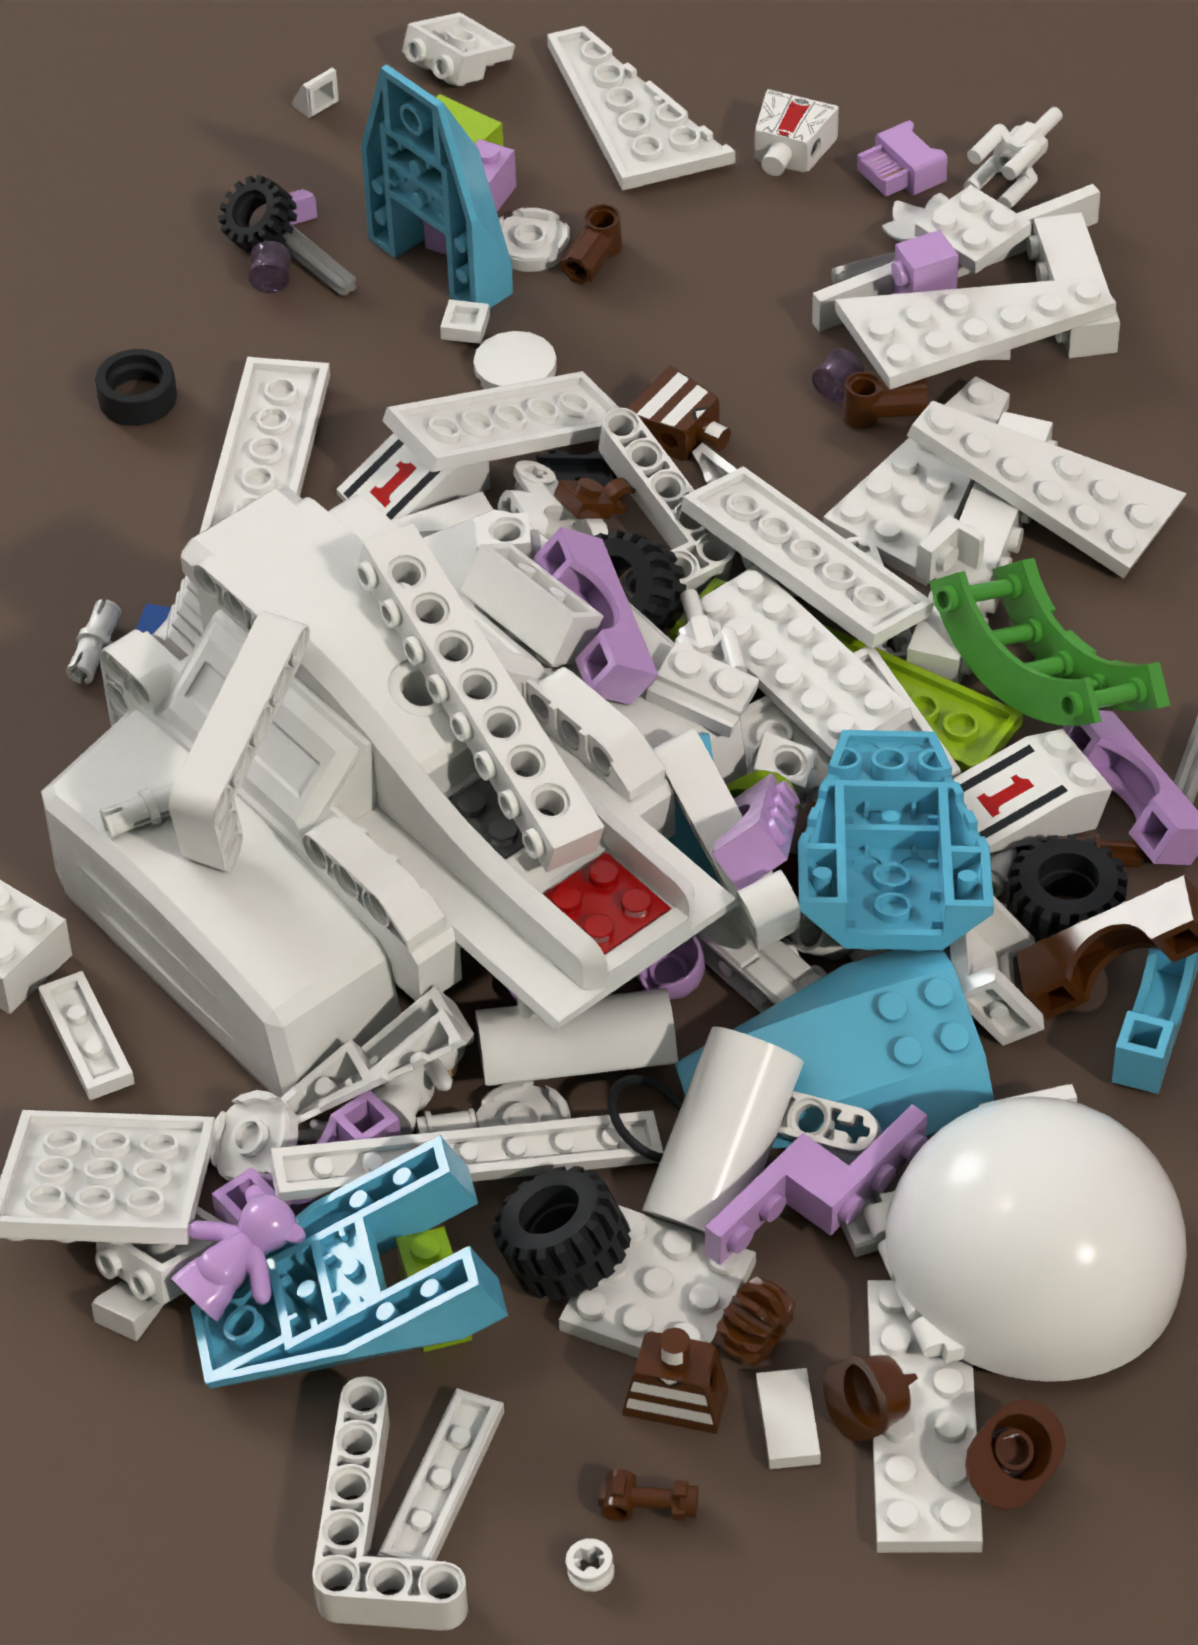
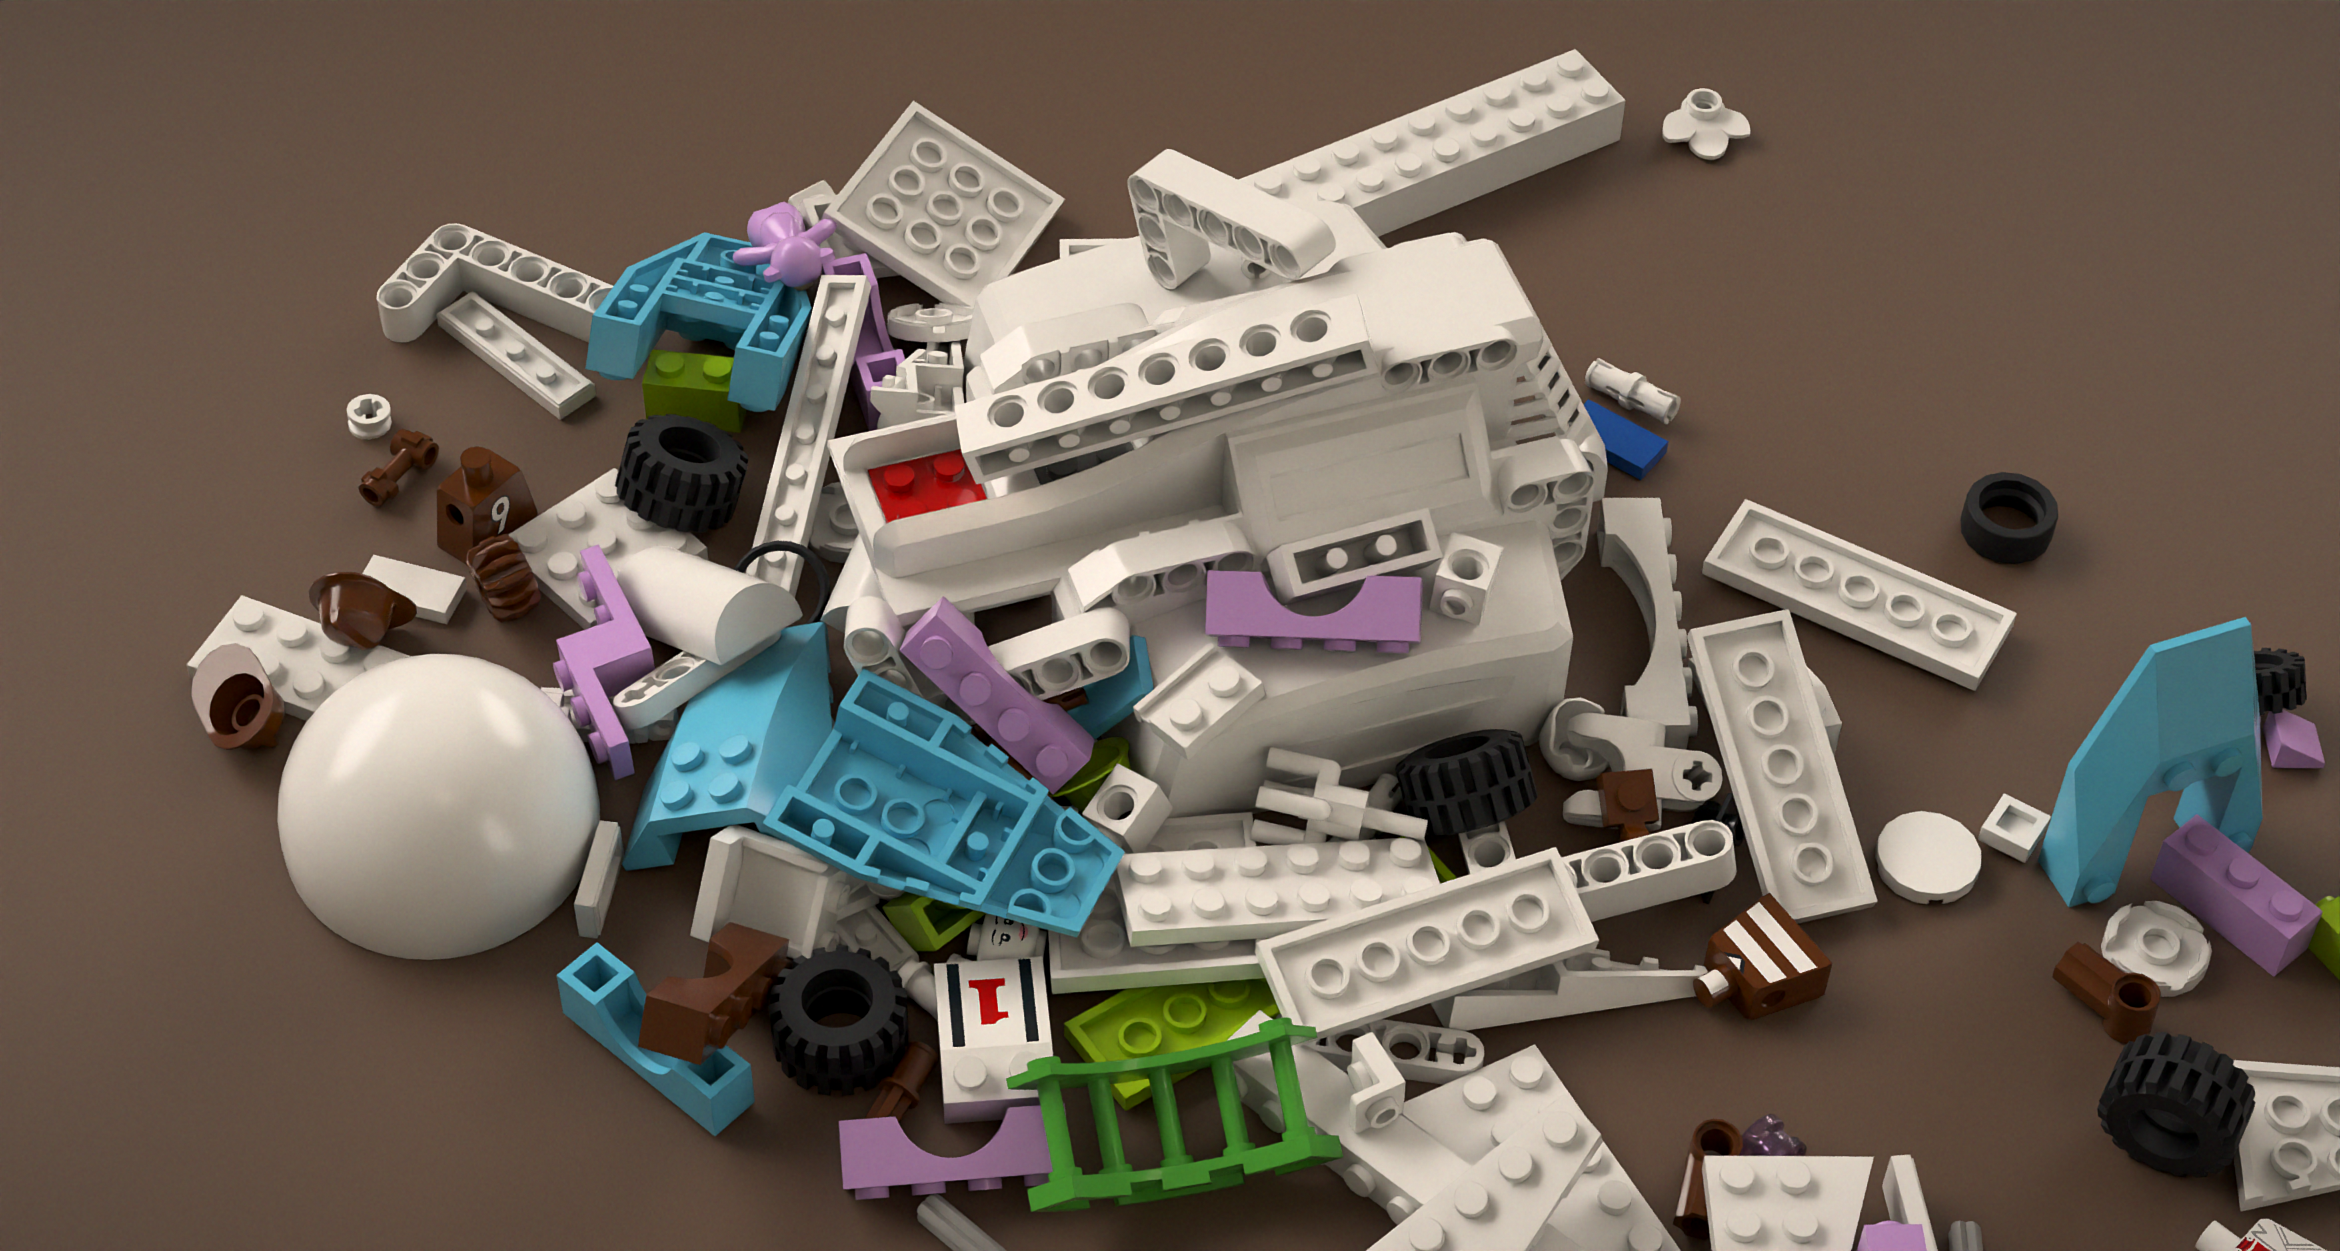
camera: 110 degrees right, 0 degrees up
(695, 175) = (2176, 1105): none -> black tyre

